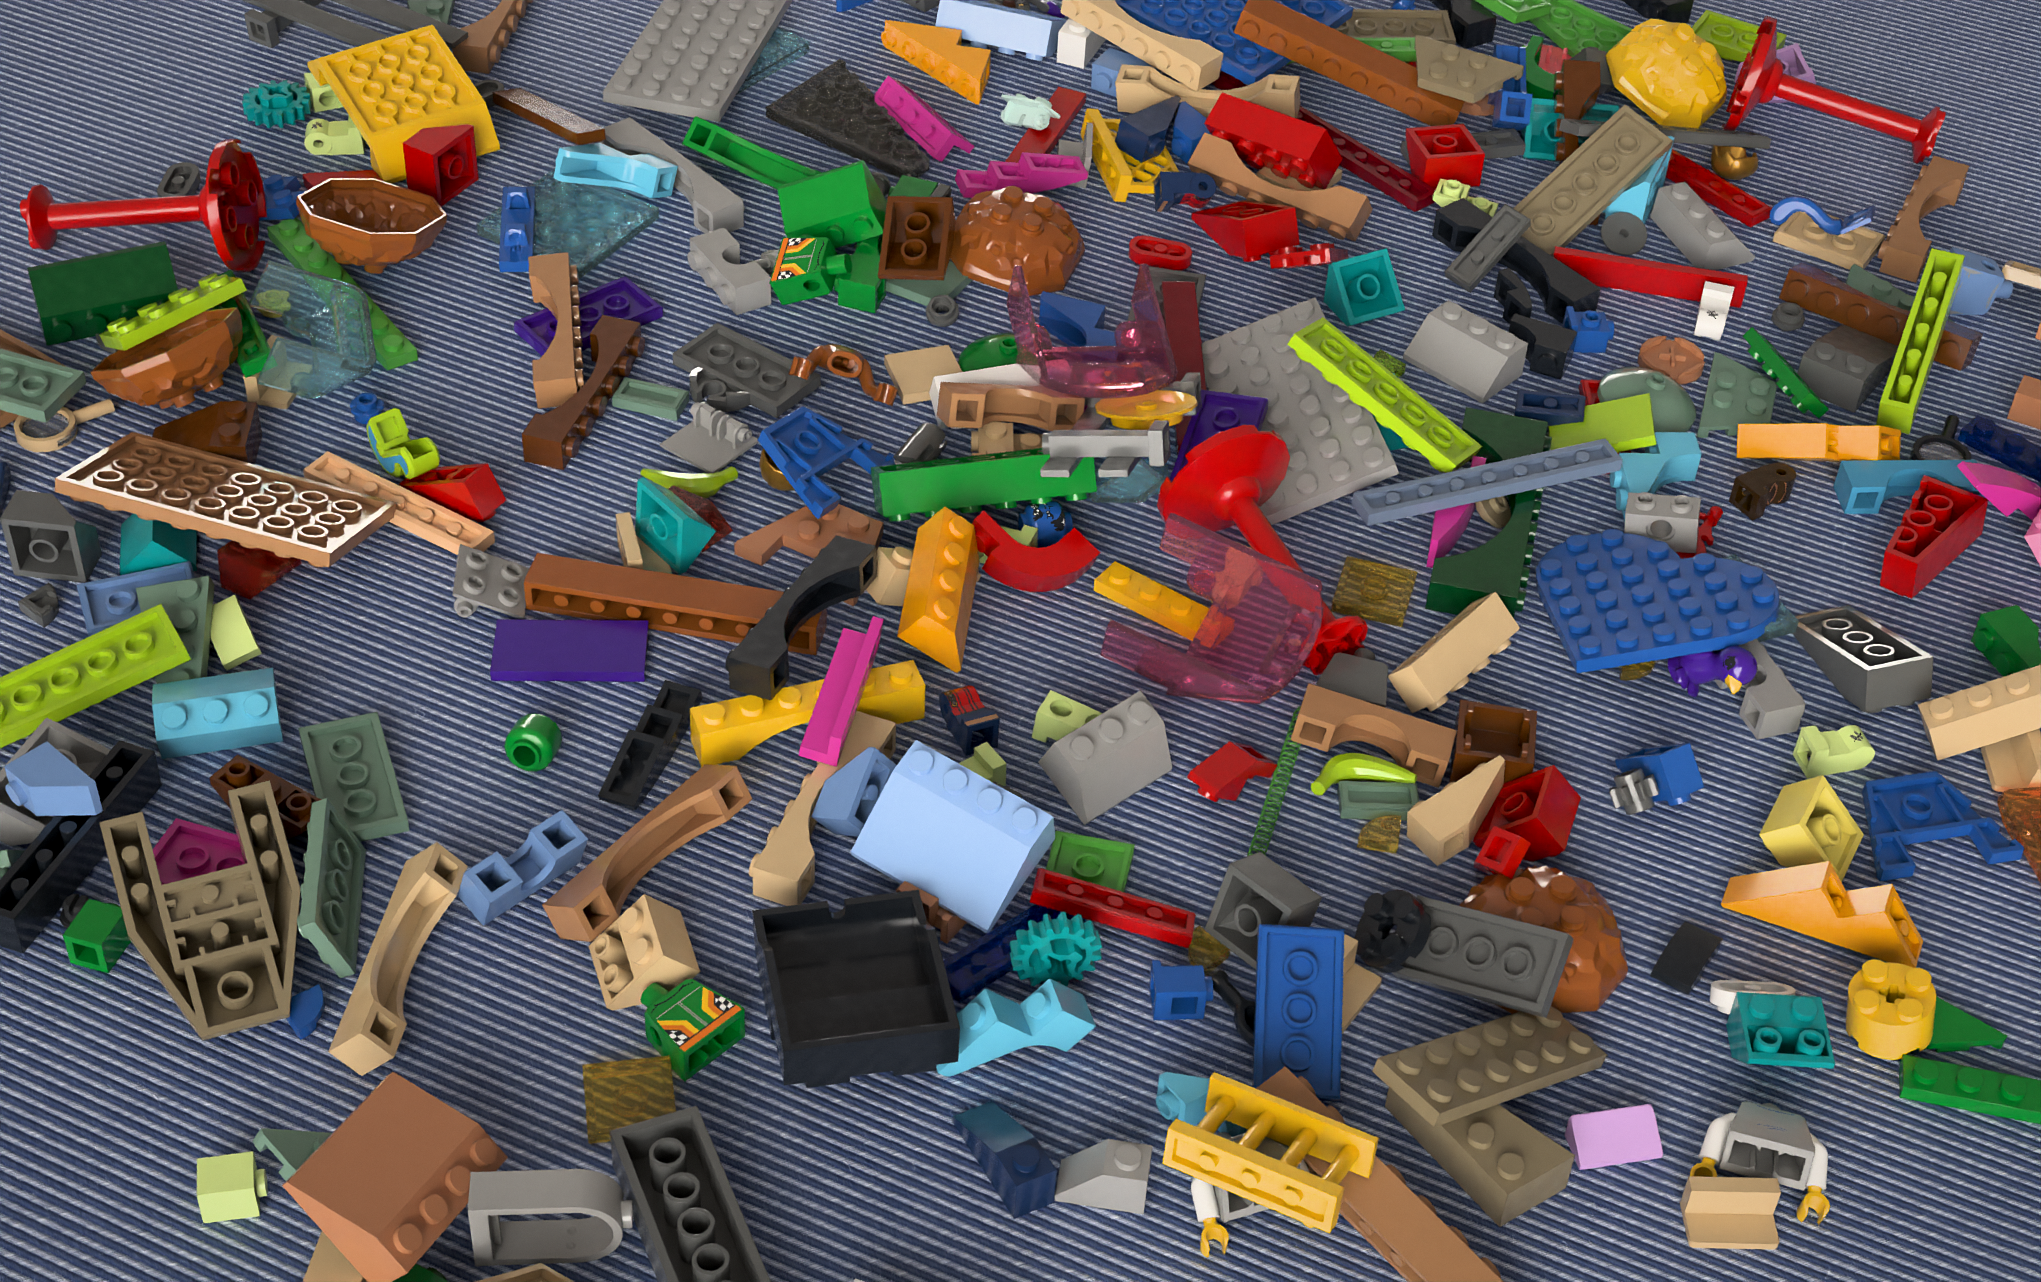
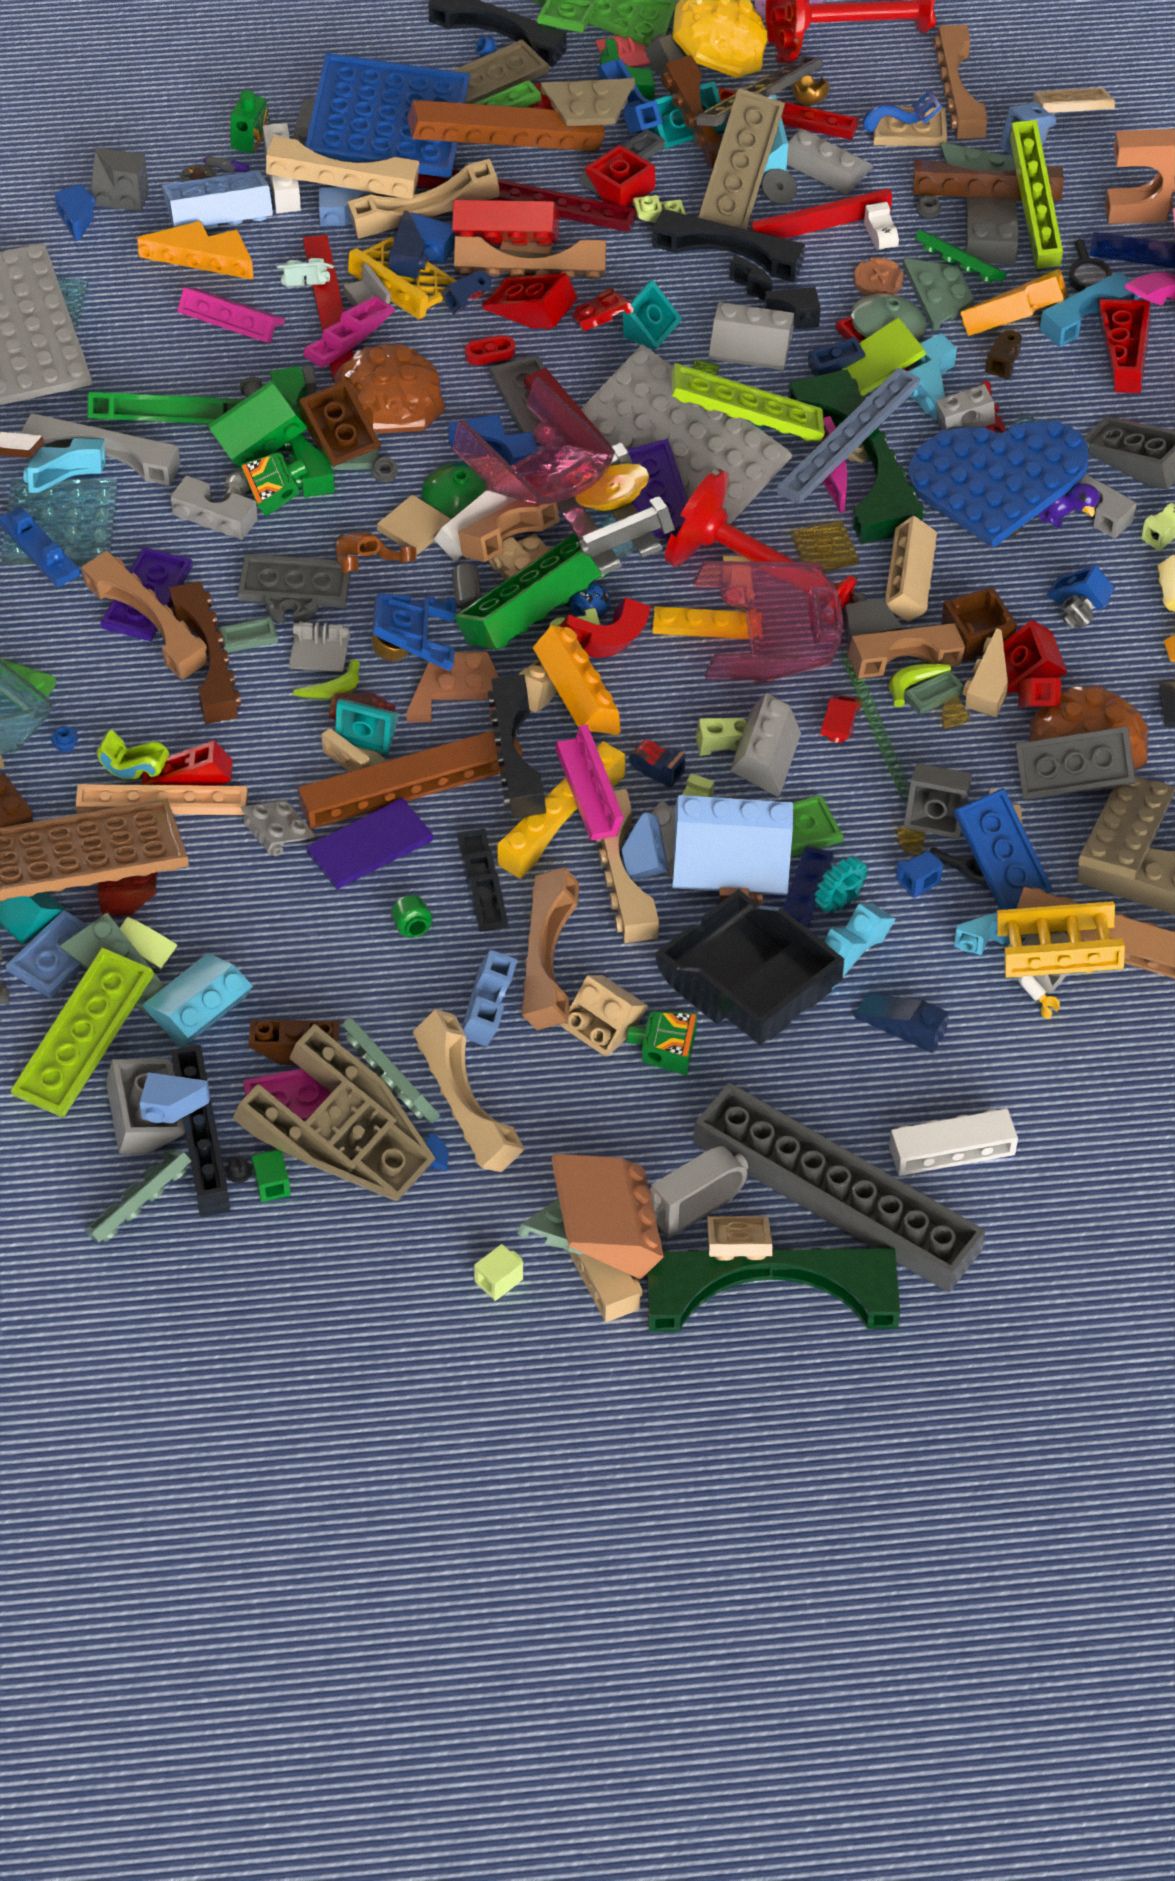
camera: 30 degrees left, 10 degrees up
(355, 773) = (319, 994): sand green plate -> none
(626, 1094) = (669, 1101): clear yellow tile -> none
(845, 117) = (165, 336): clear smoke wing -> none
(1106, 1176) = (971, 1000): light grey slope -> none
(1113, 907) = (845, 841): red tile -> none
(1381, 913) = (1018, 758): black plate -> none
(1487, 248) = (707, 244): dark grey tile -> none
(1592, 330) = (814, 276): blue brick -> none

